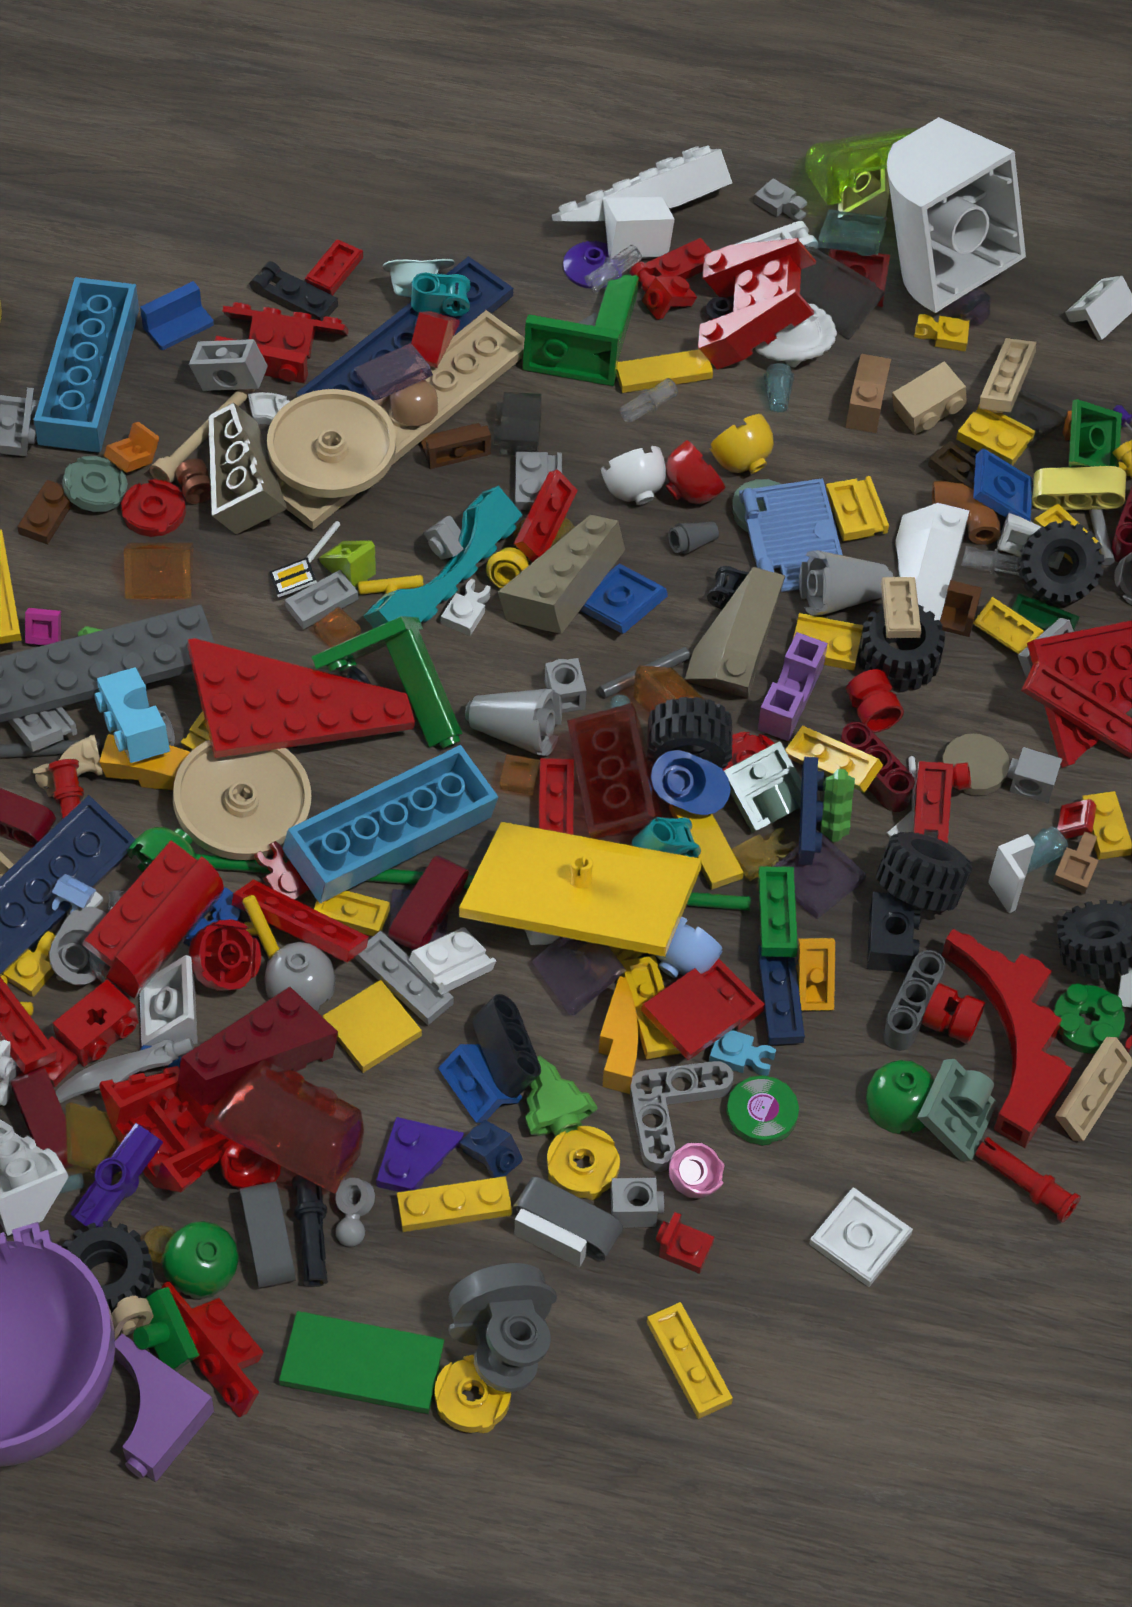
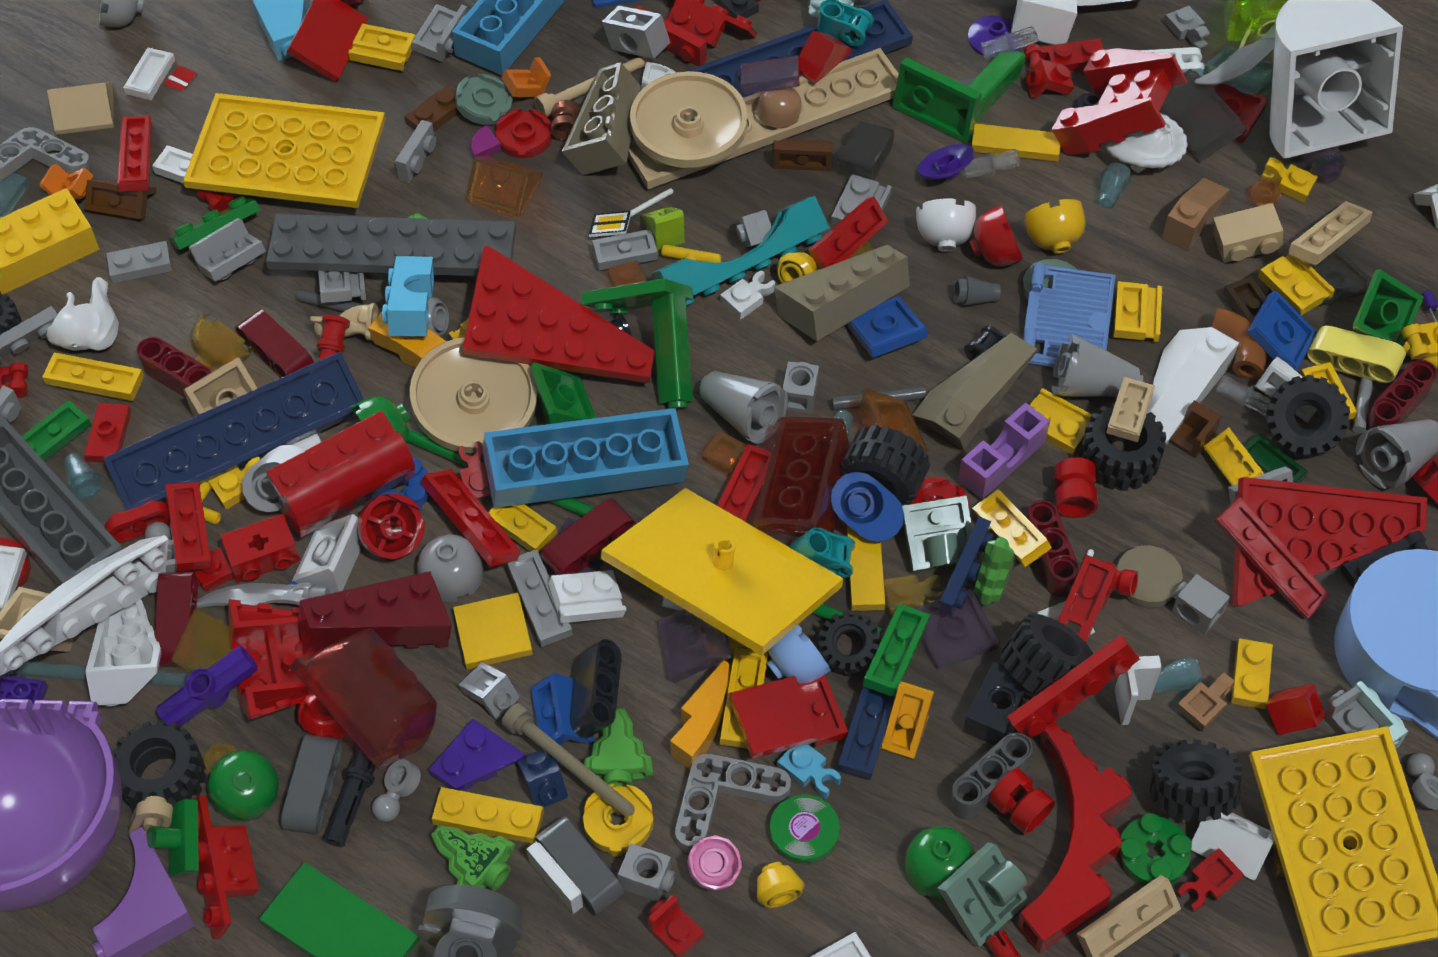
camera: 25 degrees right, 0 degrees up
(42, 626) = (383, 201): dark pink tile -> none
(50, 571) = (415, 151): none -> light grey plate
(72, 891) = (288, 429): light blue tile -> none
(118, 531) = (484, 143): none -> magenta tile
(259, 925) = (433, 509): yellow piece -> none
(331, 773) = (560, 395): none -> green slope
(398, 1081) = (490, 689): none -> light grey bracket
(446, 1102) = (519, 721): none -> dark tan piece
(461, 1247) = (475, 857): none -> bright green rock
(606, 411) = (946, 162): none -> dark purple dish
(730, 900) = (844, 624): none -> black tyre
(764, 1169) = (778, 885): none -> yellow cone
(858, 218) = (1241, 61): none -> light grey sword
(926, 352) = (1265, 192): none -> clear orange plate
(963, 889) = (1074, 687): none -> red plate
(1077, 818) = (1223, 658): red tile -> none

